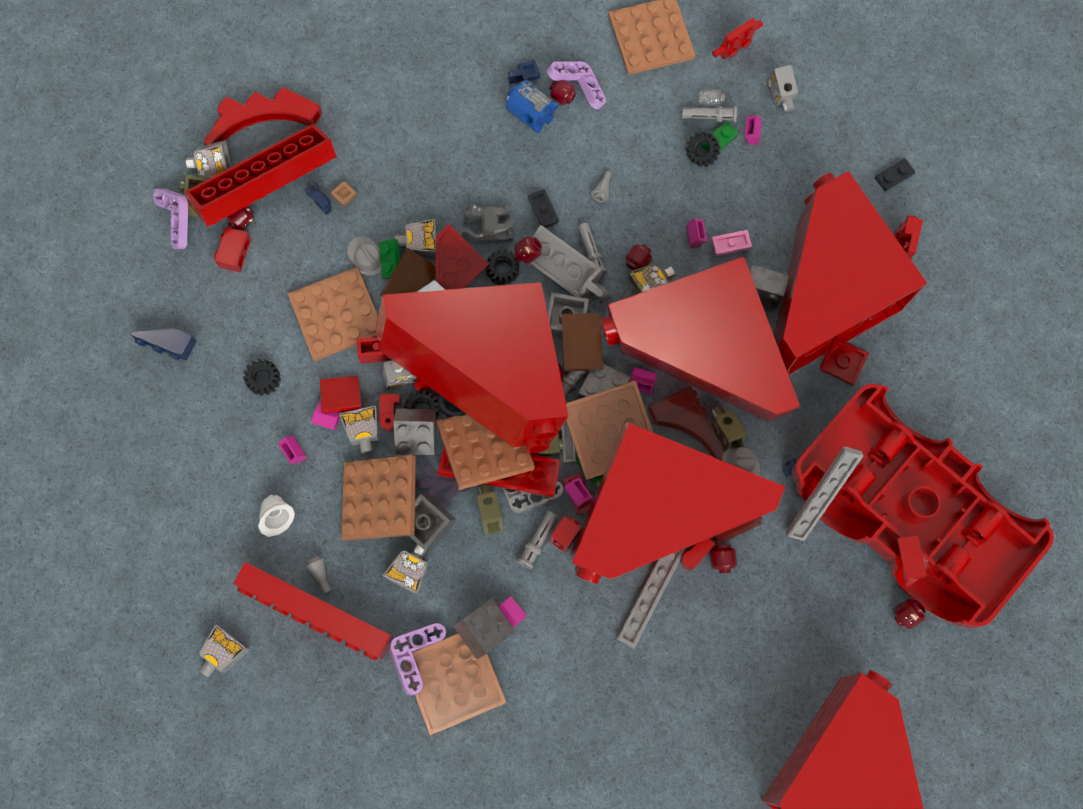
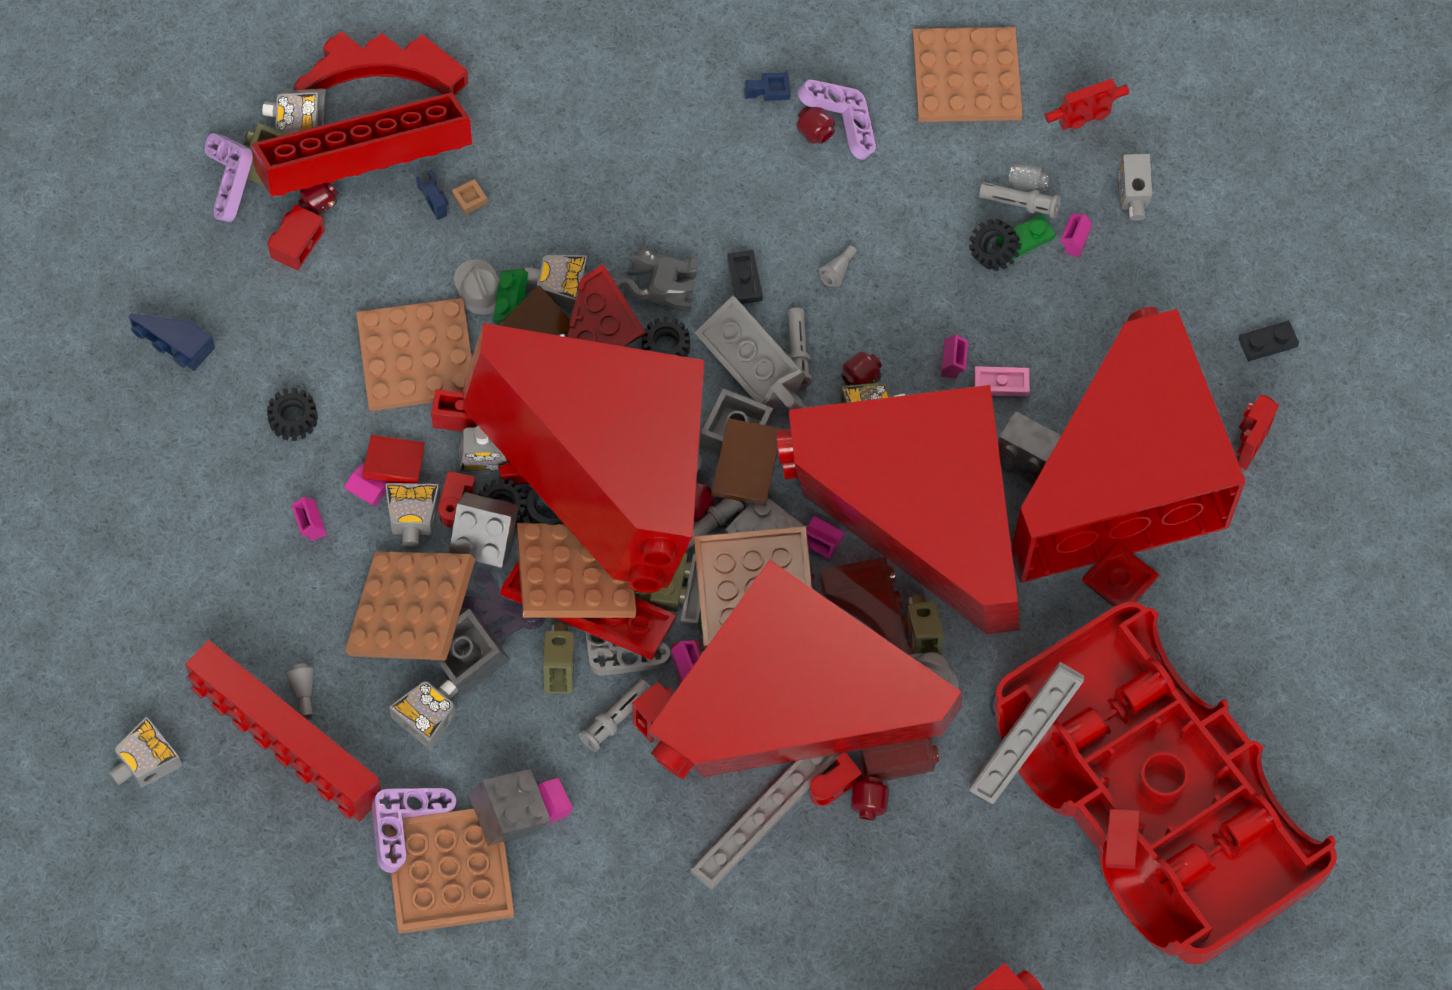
camera: 15 degrees right, 10 degrees down
(275, 516) = (263, 599): white piece -> none
(527, 249) = (706, 324): dark red head -> none
(530, 105) = (764, 133): blue cylinder -> none
(909, 613) = (1114, 932): dark red head -> none

